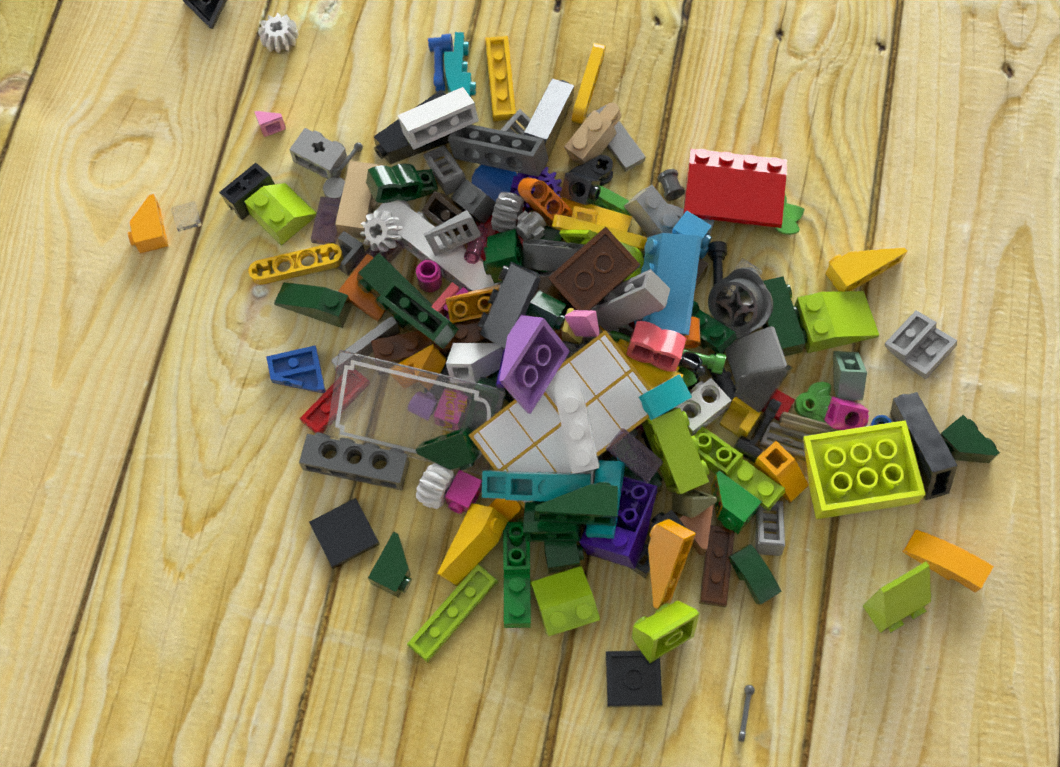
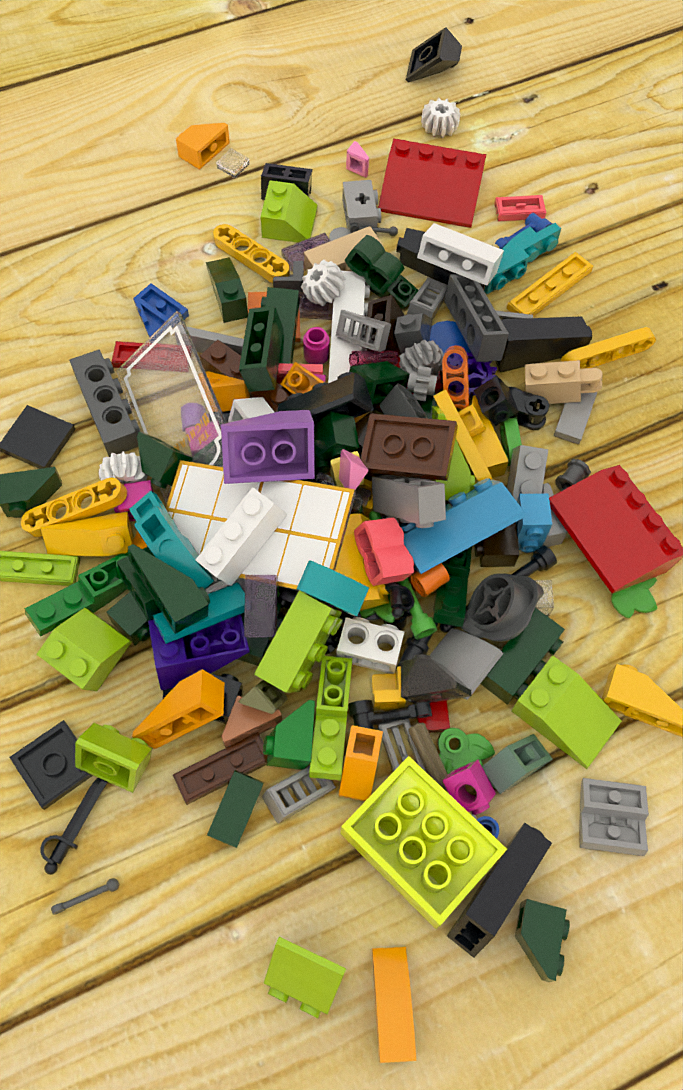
camera: 50 degrees right, 5 degrees down
(339, 86) = (432, 182): none -> red slope
(404, 57) = (518, 208): none -> coral tile
(435, 538) = (73, 504): none -> yellow beam
(692, 692) = (73, 828): none -> black sword

